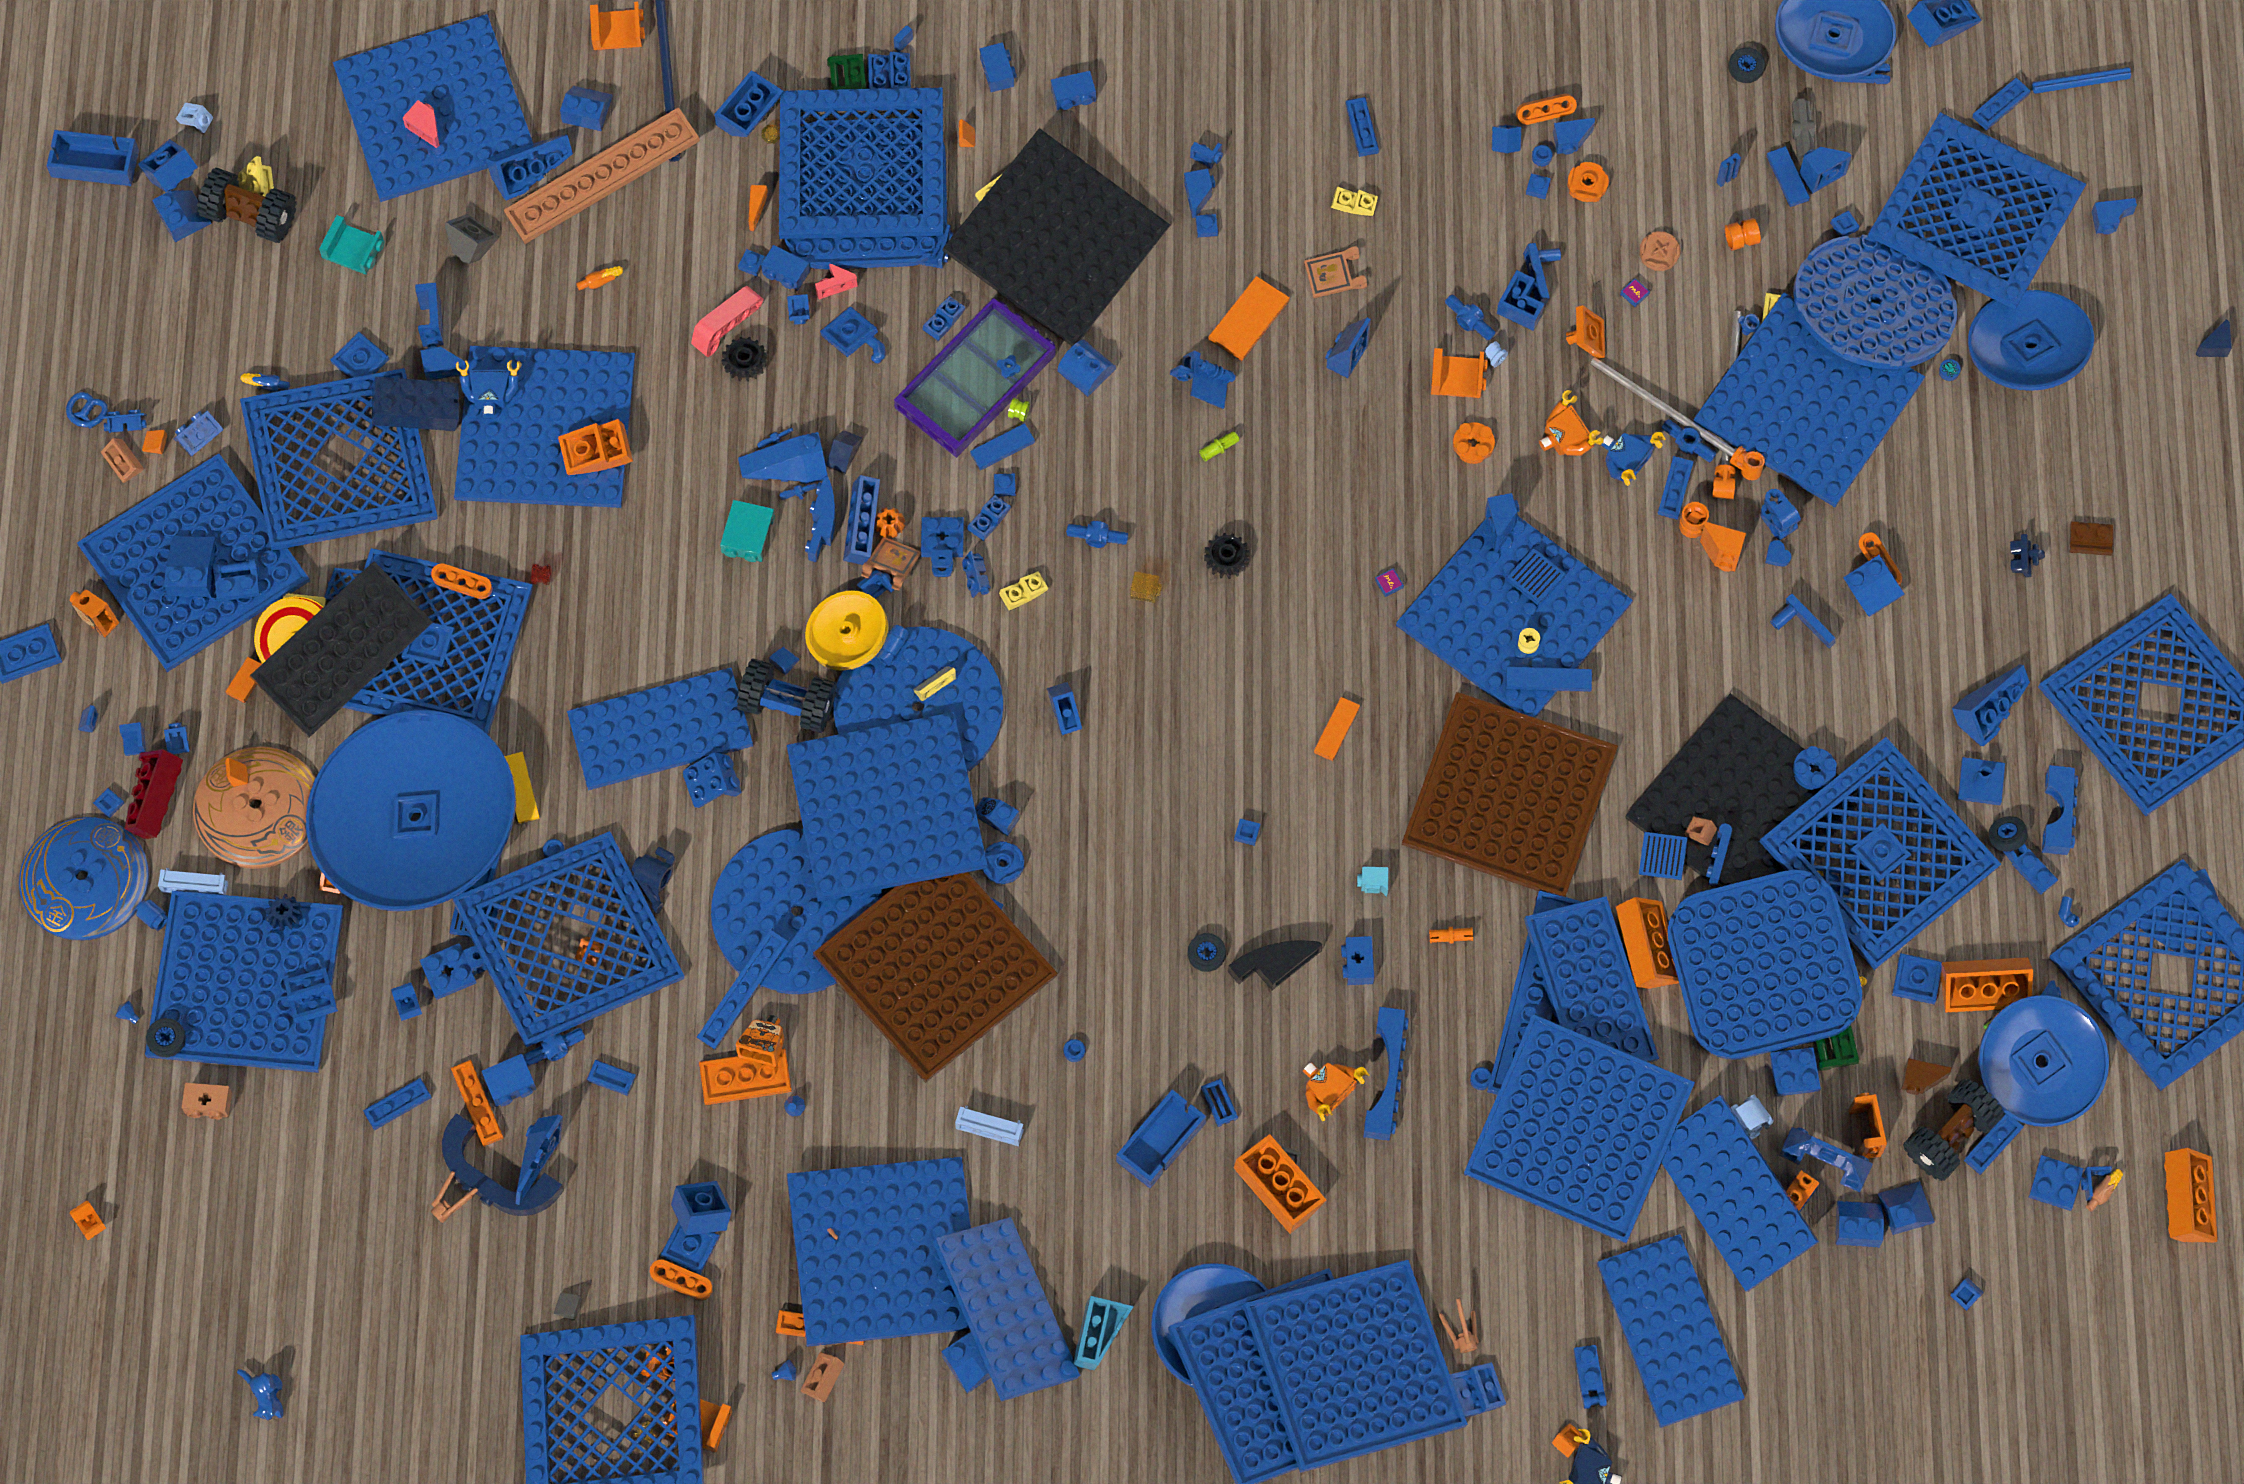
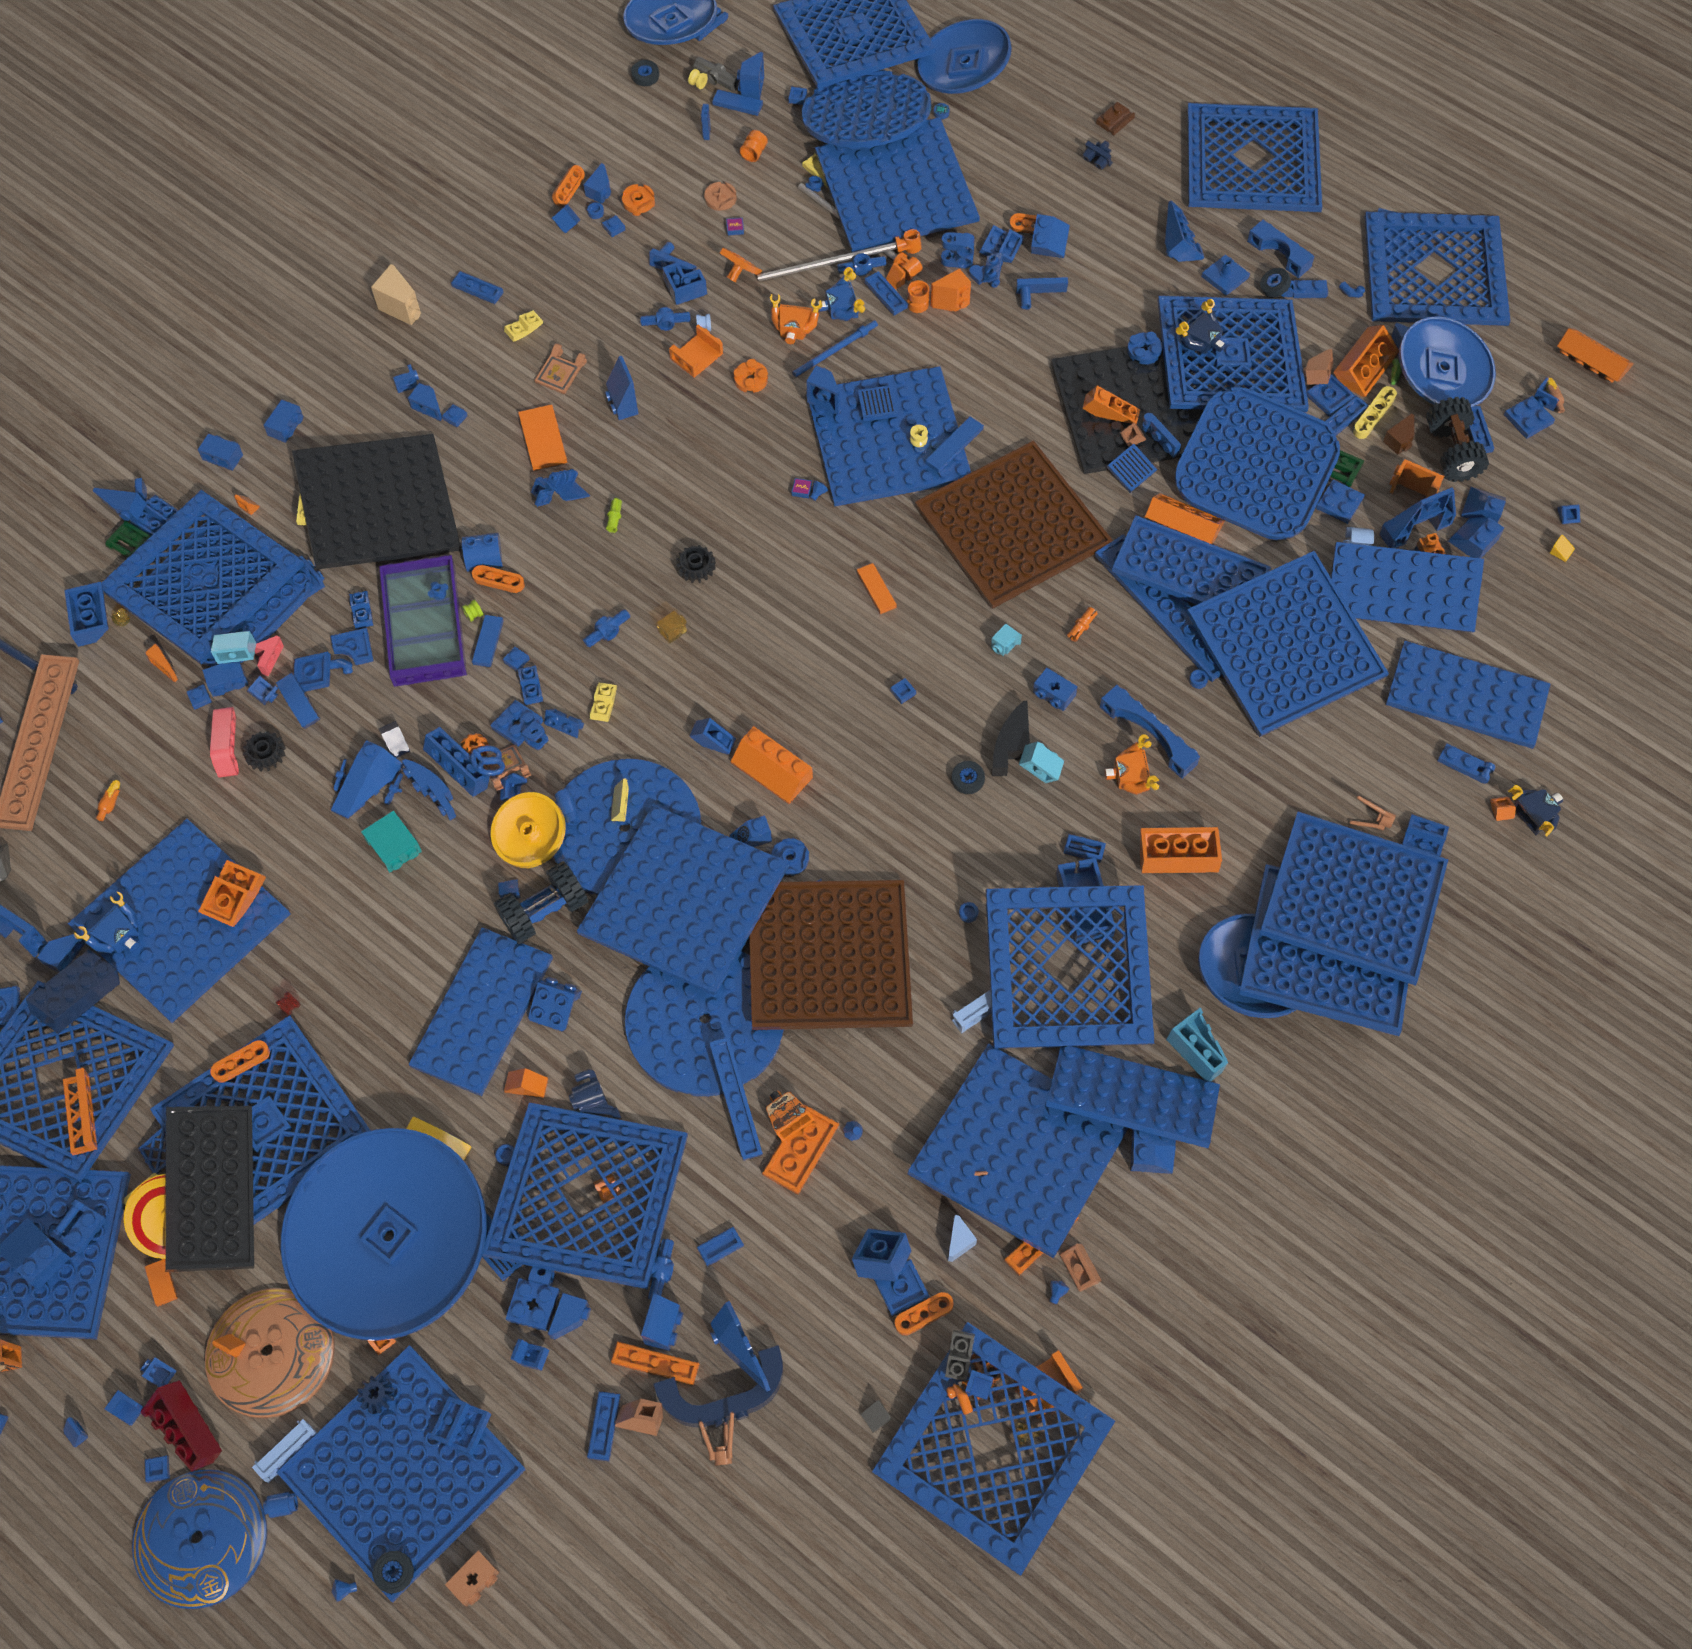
camera: 50 degrees left, 5 degrees down
(326, 503) = (85, 1112): none -> orange fence
(424, 1125) = (641, 1416): none -> nougat slope
(460, 1006) = (569, 1315): none -> blue slope
(625, 816) = (526, 1083): none -> orange slope
(627, 1357) = (962, 1396): none -> orange arm
(647, 1361) = (979, 1385): none -> blue panel
(659, 1329) = (960, 1355): none -> dark grey slope
(766, 1261) = (961, 1239): none -> light blue slope
(811, 345) = (298, 701): none -> blue slope
(812, 251) = (233, 647): none -> medium azure brick
(874, 38) = (126, 504): none -> blue slope
(877, 530) = (487, 760): none -> blue piece
(906, 342) = (354, 644): none -> blue tile
(978, 1167) = (1133, 901): none -> blue plate
(1069, 396) = (491, 575): none -> orange plate
(1077, 779) = (772, 765): none -> orange slope
(1268, 1002) = (1041, 762): none -> medium azure brick
(1283, 69) = (396, 296): none -> tan slope
(1399, 598) = (818, 489): none -> blue rock
(1611, 500) = (861, 332): none -> blue bar
(1703, 482) = (896, 276): none -> orange slope
(1713, 787) = (1108, 406): none -> orange slope
(1780, 118) = (698, 79): none -> light yellow wheel
(1793, 560) = (993, 269): none -> blue hinge
(1831, 548) = (1002, 241): none -> blue slope
(1870, 809) = (1203, 332): none -> dark blue torso
(1902, 1009) = (1347, 414): none -> blue tile
(1916, 1313) = (1562, 549): none -> yellow slope
(1932, 1036) = (1373, 411): none -> light yellow beam
(1936, 946) = (1319, 368): none -> nougat slope

